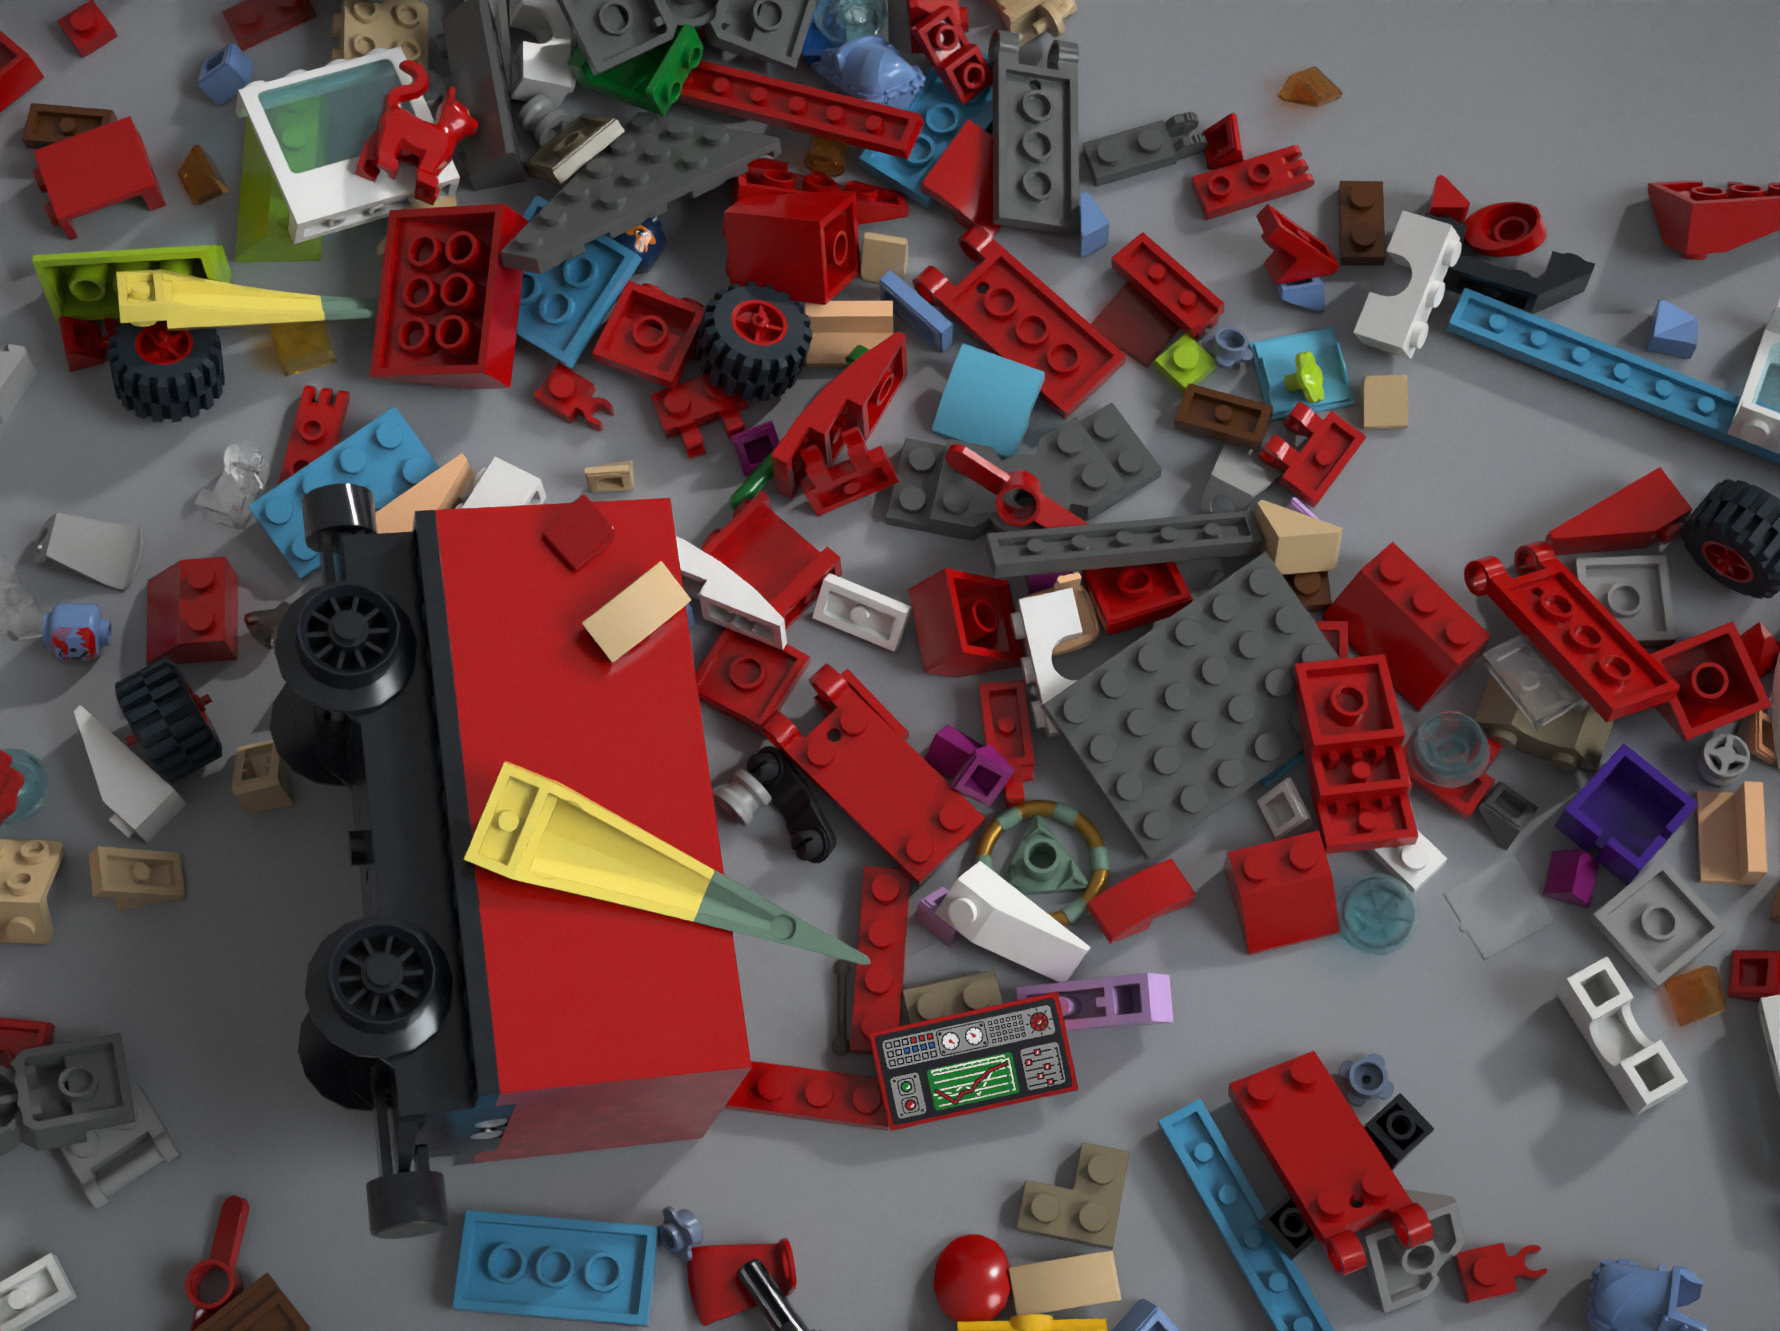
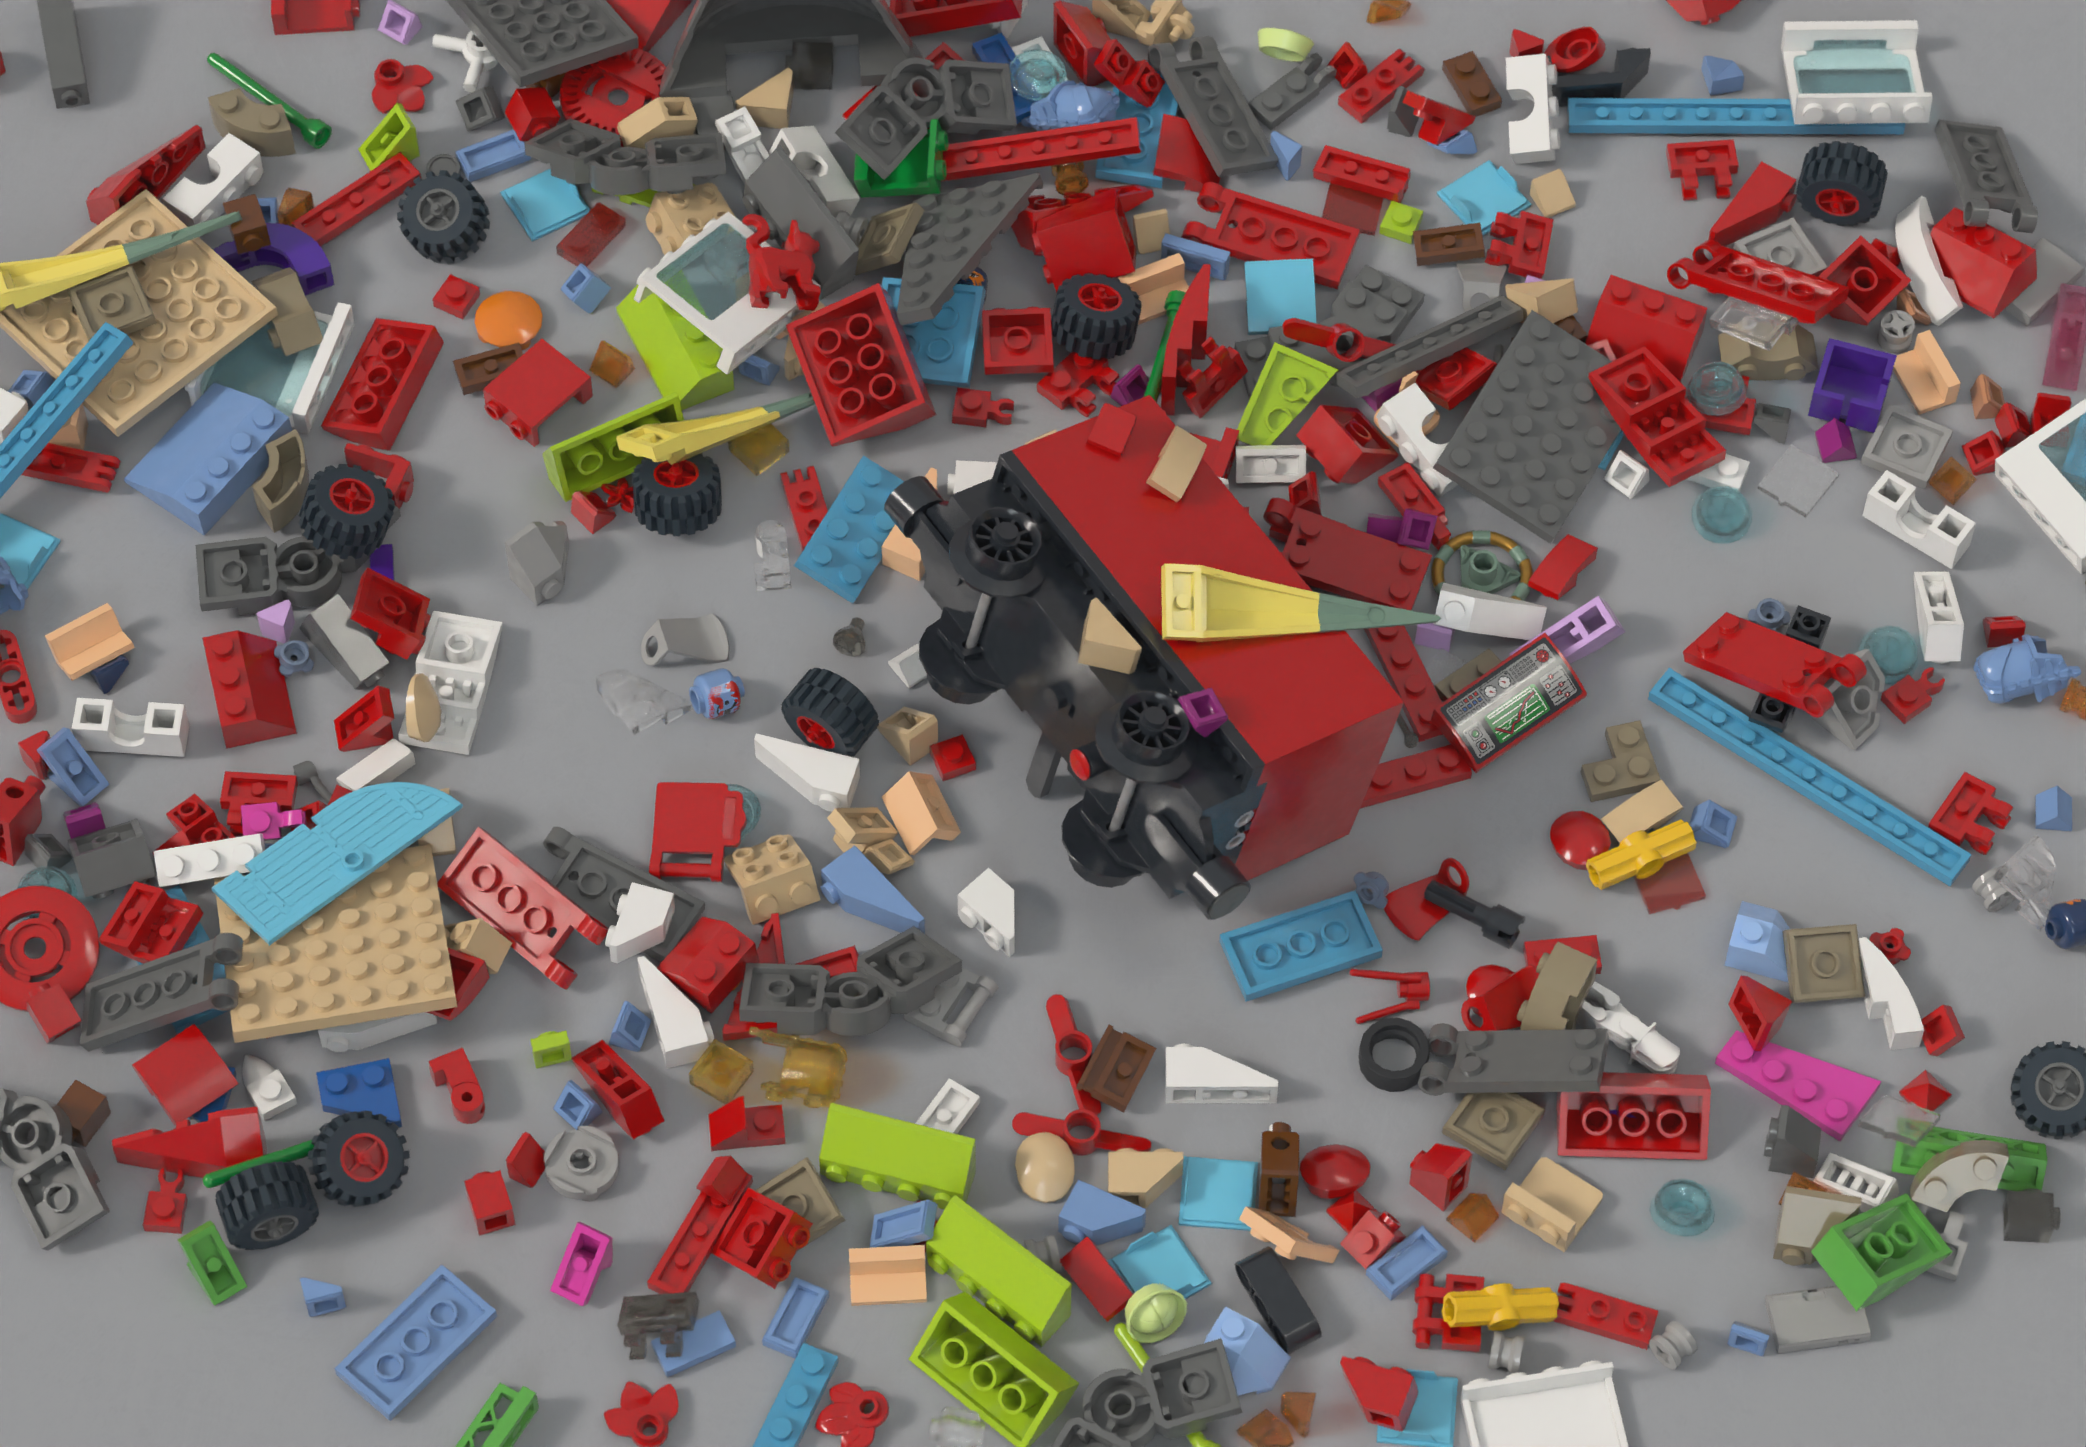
camera: 30 degrees left, 10 degrees down
(95, 952) = (867, 893): none -> medium blue slope
(125, 78) = (508, 319): none -> orange dish
(152, 924) = (888, 857): none -> tan slope
(193, 612) = (789, 646): red slope -> none
(222, 883) = (919, 811): none -> light nougat panel
(226, 1051) = (990, 908): none -> white slope
(297, 828) = (952, 757): none -> red plate
(358, 246) = (759, 369): none -> medium blue slope
(401, 822) = (1107, 642): none -> tan slope
(454, 985) = (1203, 711): none -> magenta slope
(885, 670) = (1306, 493): none -> red slope
(914, 530) = (1281, 394): none -> lime wing
(1159, 87) = (1284, 44): none -> yellowish green hat
(1228, 347) = (1426, 198): sand blue plate -> none
(1248, 230) = (1401, 115): none -> dark grey slope
(1282, 892) = (1653, 523): red slope -> none
(1307, 377) = (1491, 197): lime plant -> none
(1495, 1186) = (1892, 644): none -> clear light blue hat
(1581, 1178) = (1938, 617): none -> white slope
(1589, 431) = (1703, 159): none -> red plate
(1660, 1233) = (2003, 630): none -> red slope

